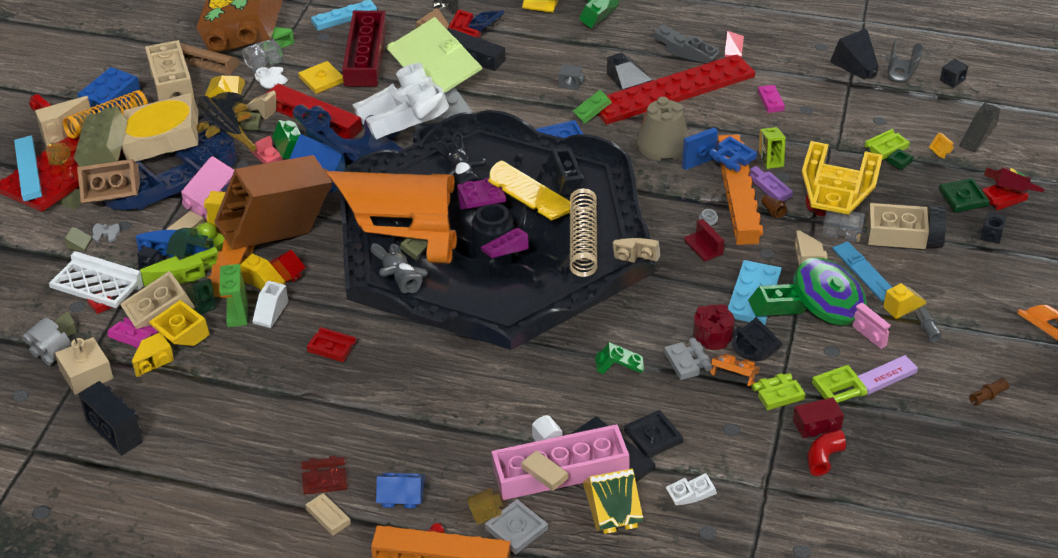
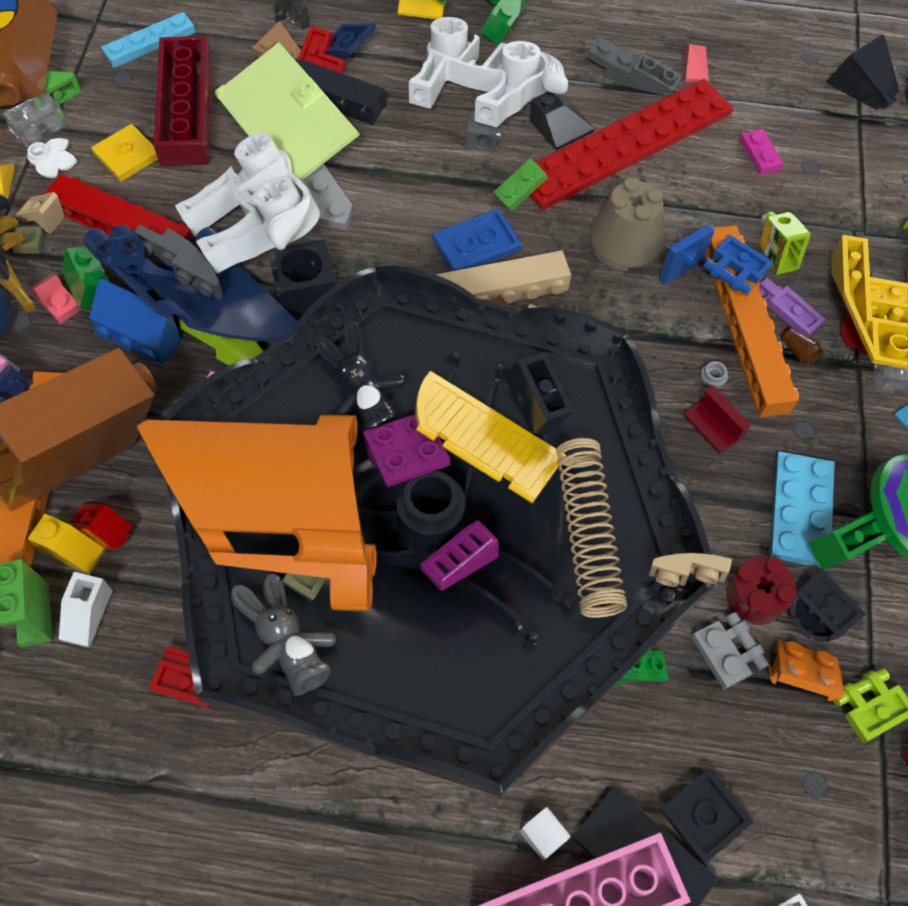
camera: 10 degrees left, 20 degrees up
(355, 128) = (186, 260): none -> dark grey slope
(582, 49) = (510, 75): none -> white animal
(808, 247) = (867, 430): tan slope -> none

